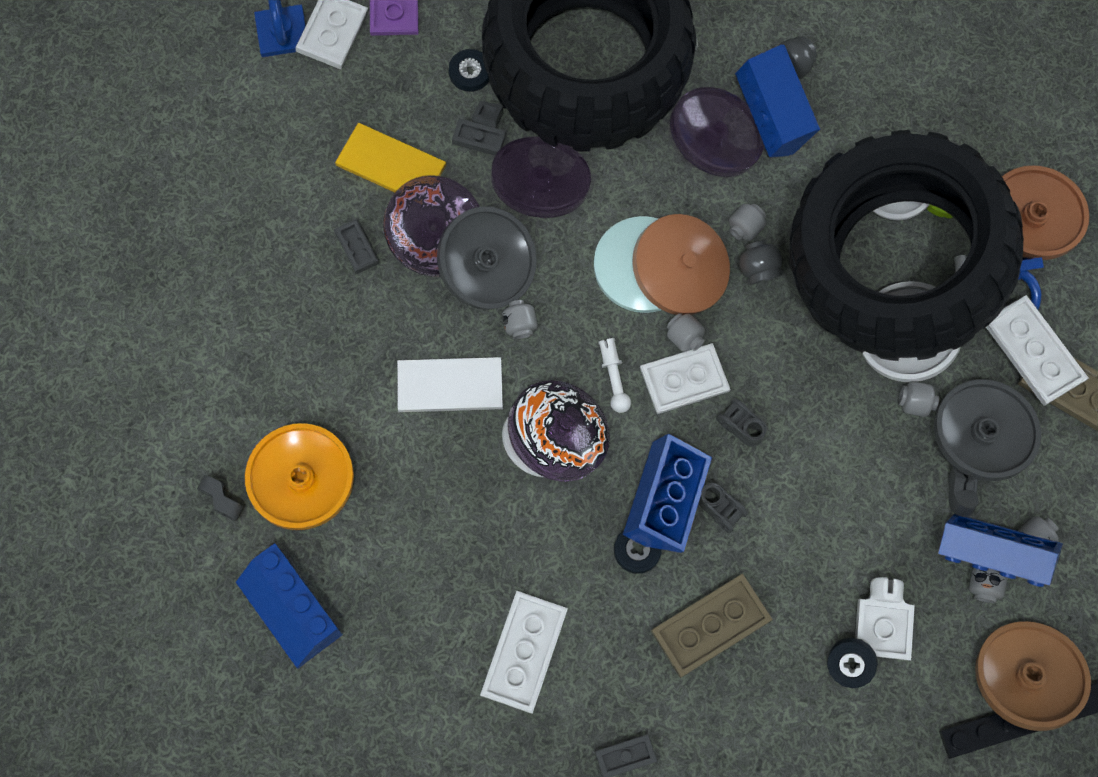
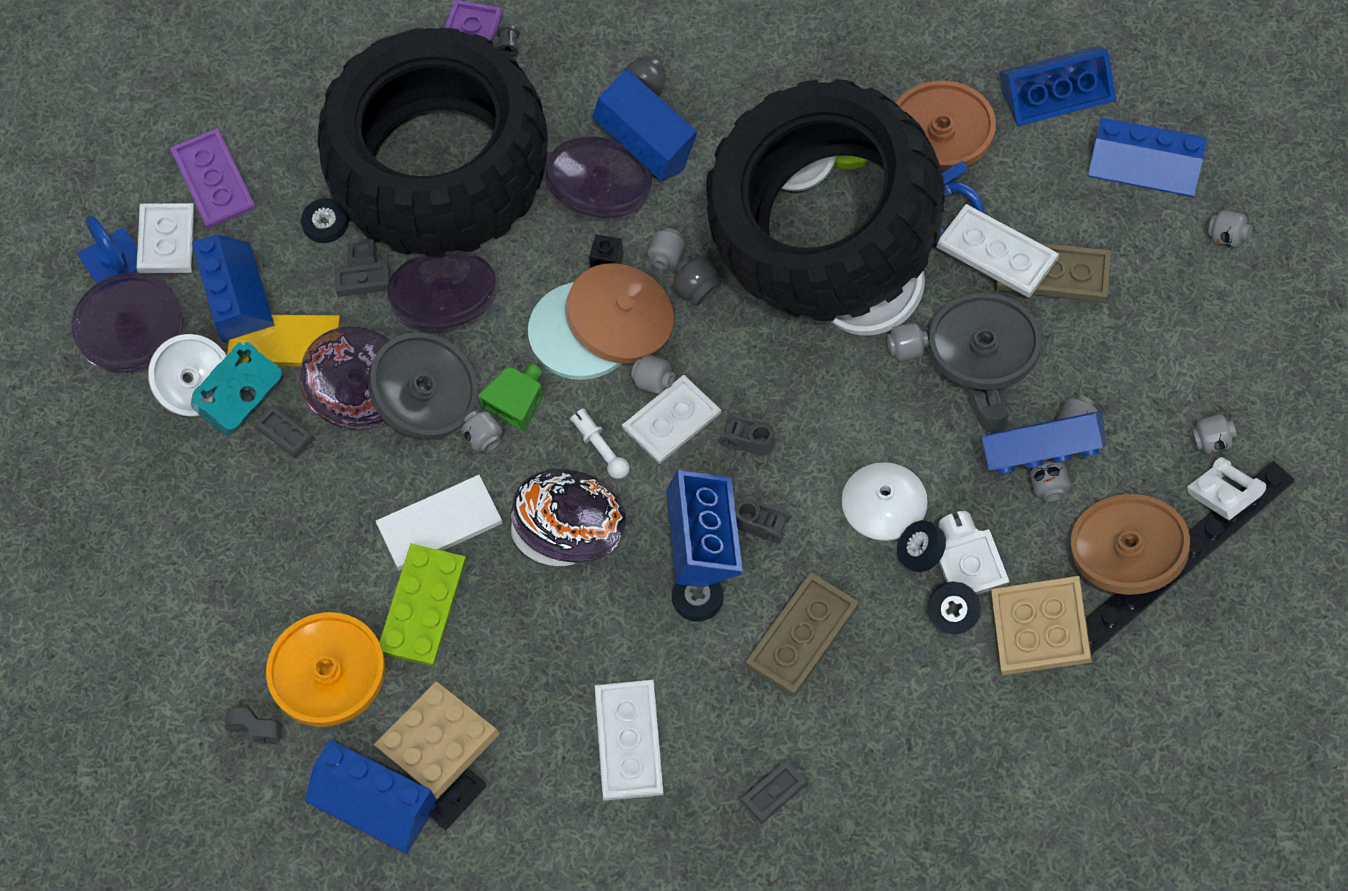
camera: 15 degrees left, 10 degrees down
(267, 92) = (125, 321): none -> clear purple dish
(317, 159) = (181, 356): none -> white dish
(327, 184) = (229, 382): none -> teal axle
(359, 637) = (456, 799): none -> black plate
(364, 580) = (436, 739): none -> tan plate
(367, 97) = (232, 286): none -> blue slope
(404, 453) = (422, 604): none -> lime plate
(560, 300) = (514, 396): none -> bright green torso
(693, 203) = (606, 251): none -> black brick
(823, 547) = (881, 515): none -> white dish
(838, 588) = (910, 549): none -> black bush
(921, 714) = (1041, 625): none -> tan plate

